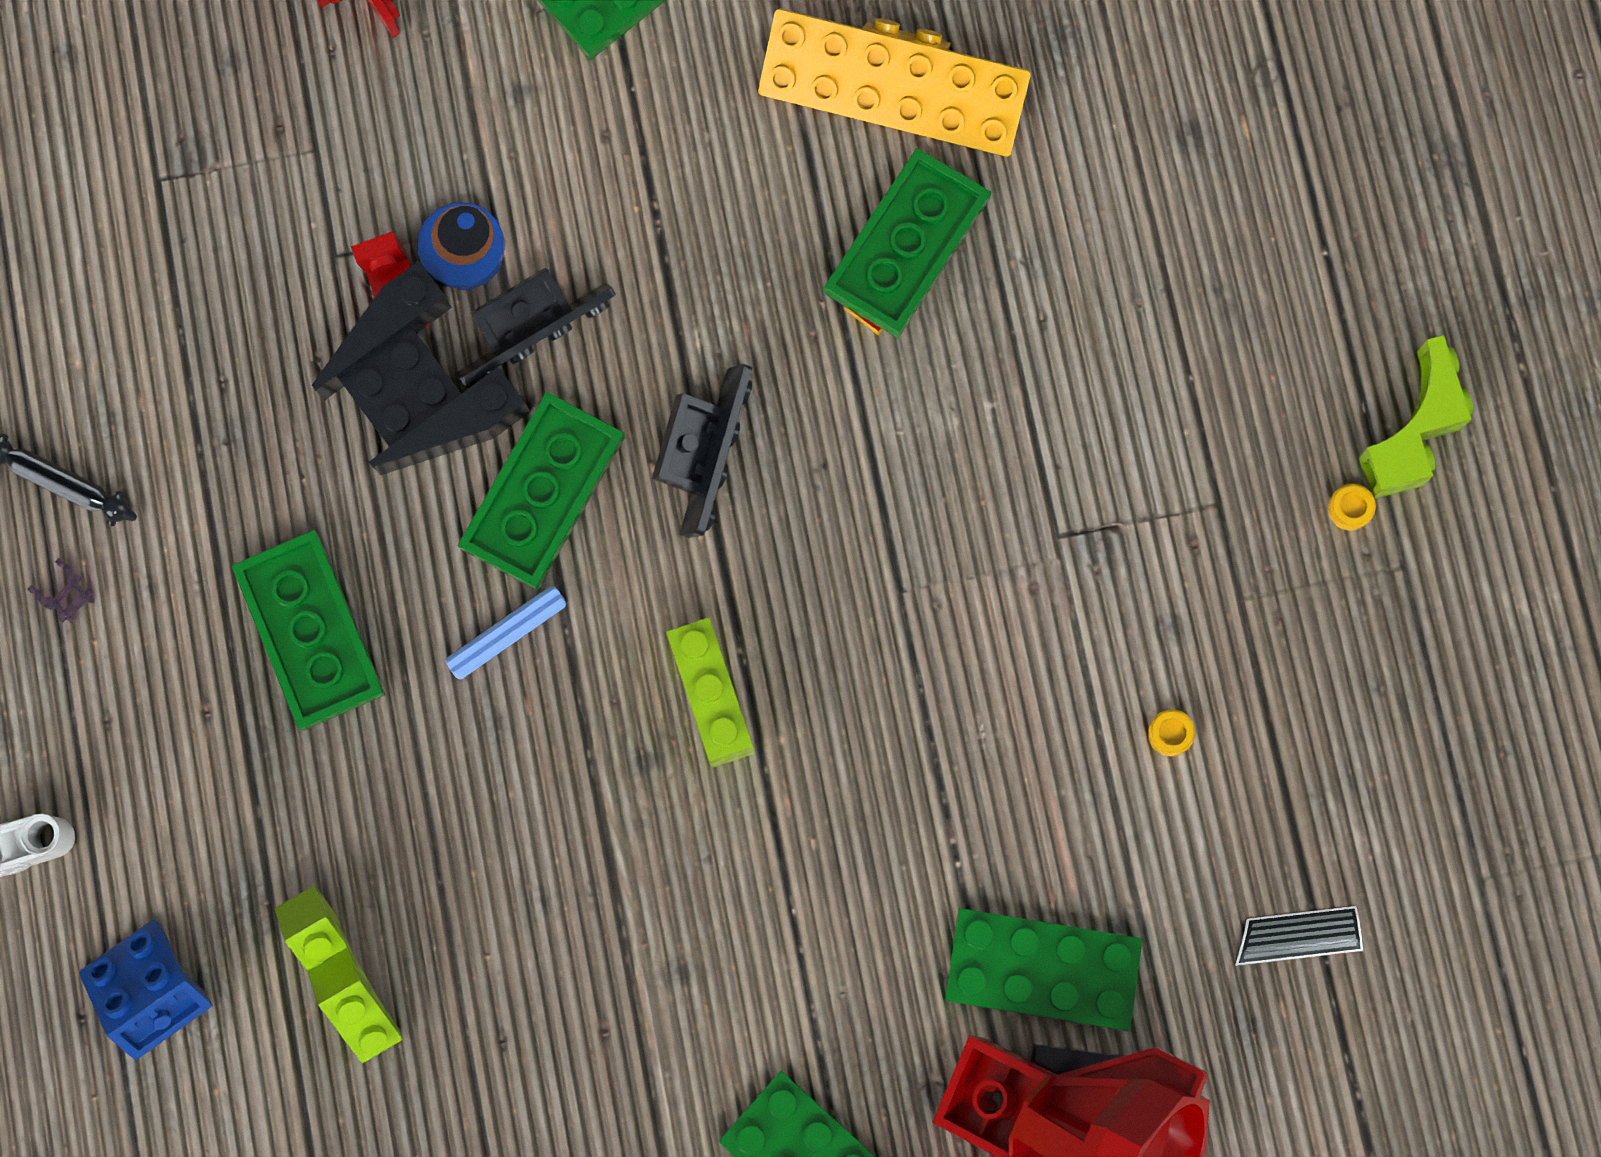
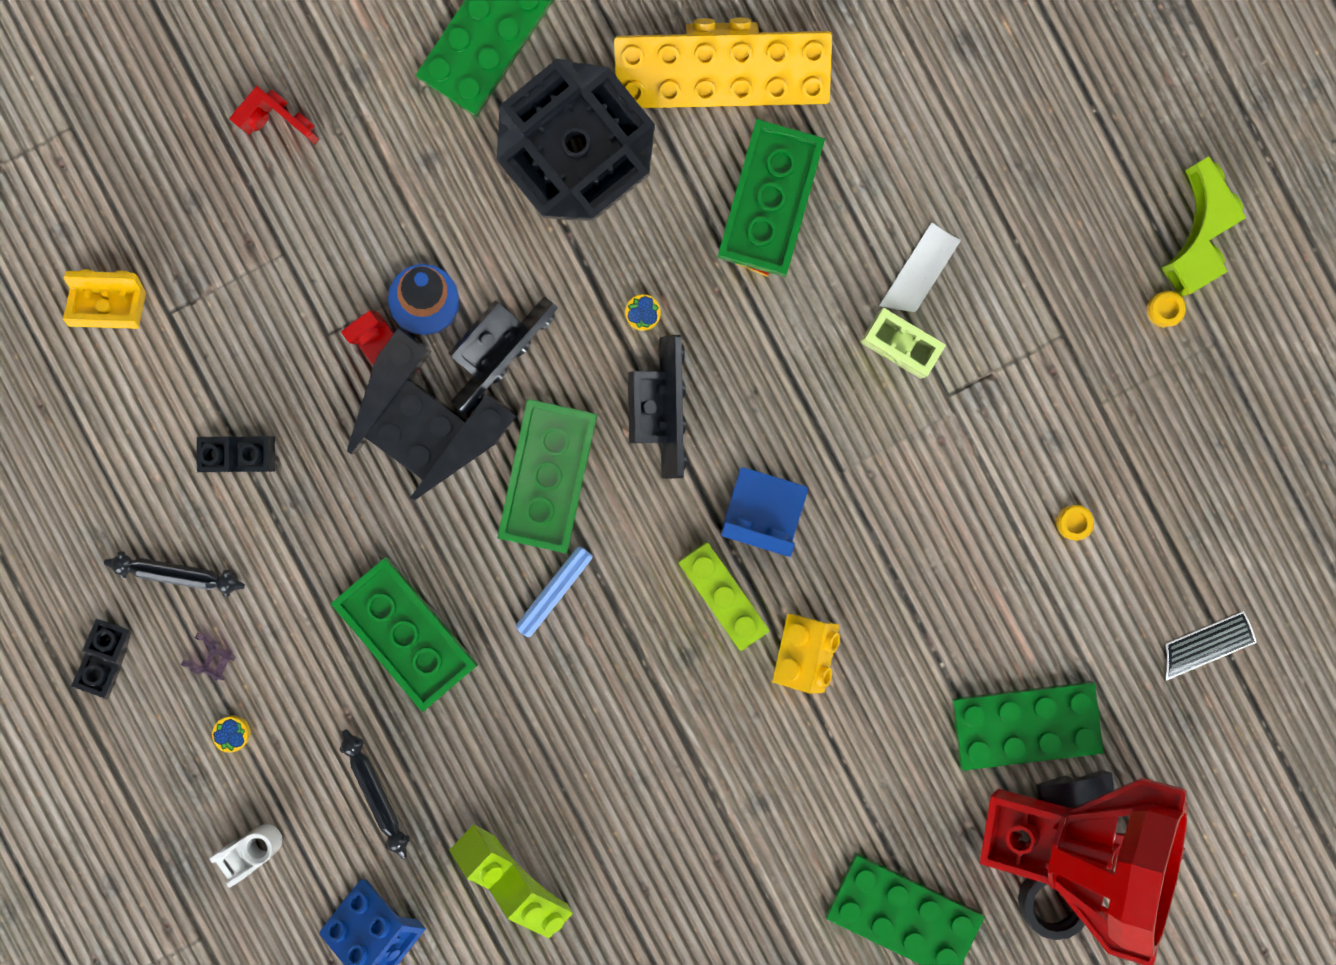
camera: 20 degrees left, 10 degrees up
(57, 691) = (231, 733): none -> tile
(89, 139) = (103, 299): none -> yellow bracket
(179, 361) = (236, 454): none -> black slope
(206, 817) = (374, 794): none -> black wheel
(687, 70) = (565, 104): none -> black piece
(716, 333) = (643, 312): none -> tile
(791, 608) = (764, 511): none -> blue bracket
(792, 797) = (806, 654): none -> yellow bracket
(1015, 451) = (903, 343): none -> yellowish green brick
(1065, 378) = (921, 270): none -> white sticker

